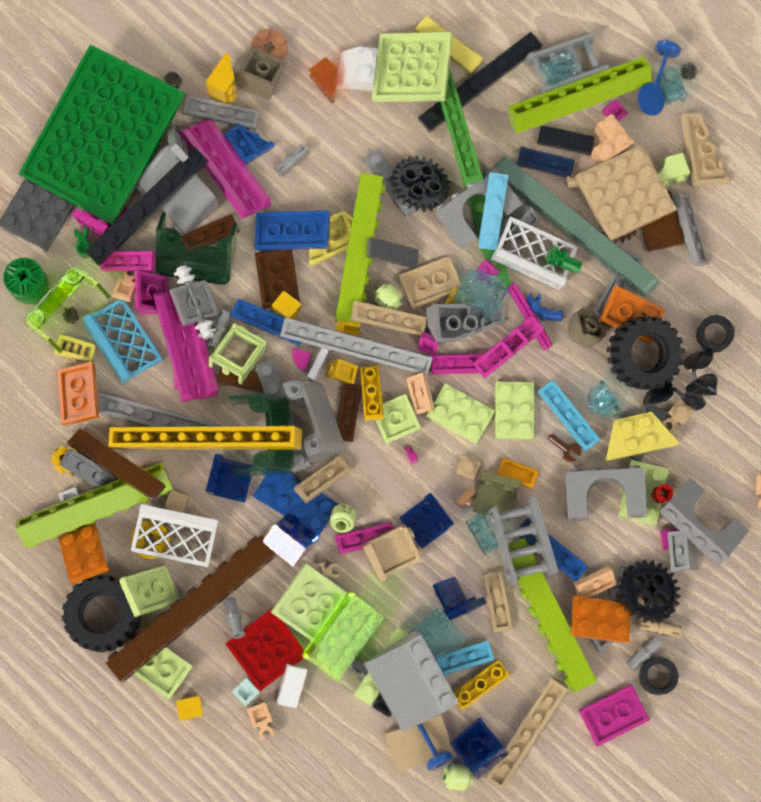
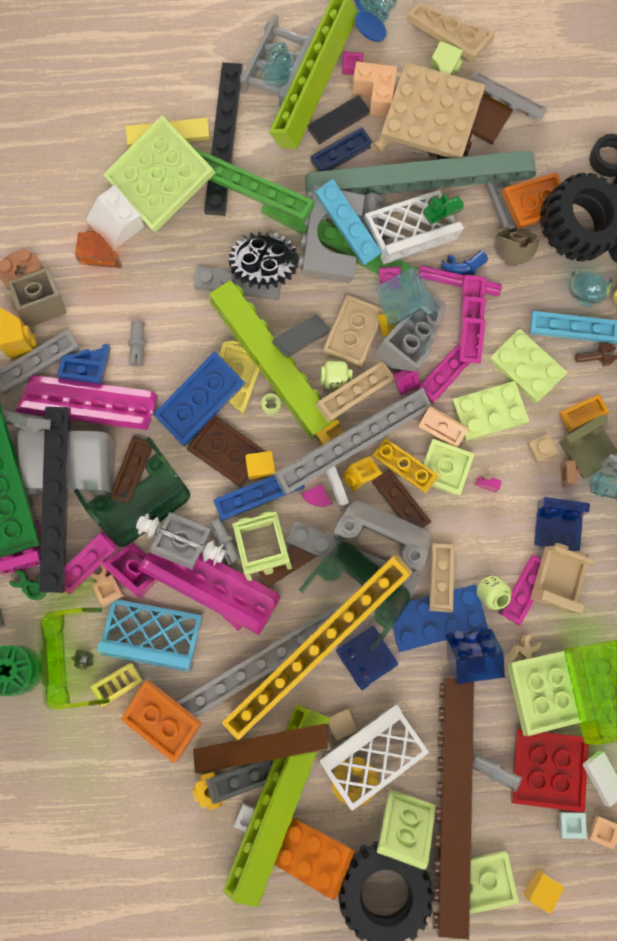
camera: 40 degrees left, 0 degrees up
(328, 273) = (271, 396): none -> yellowish green bush

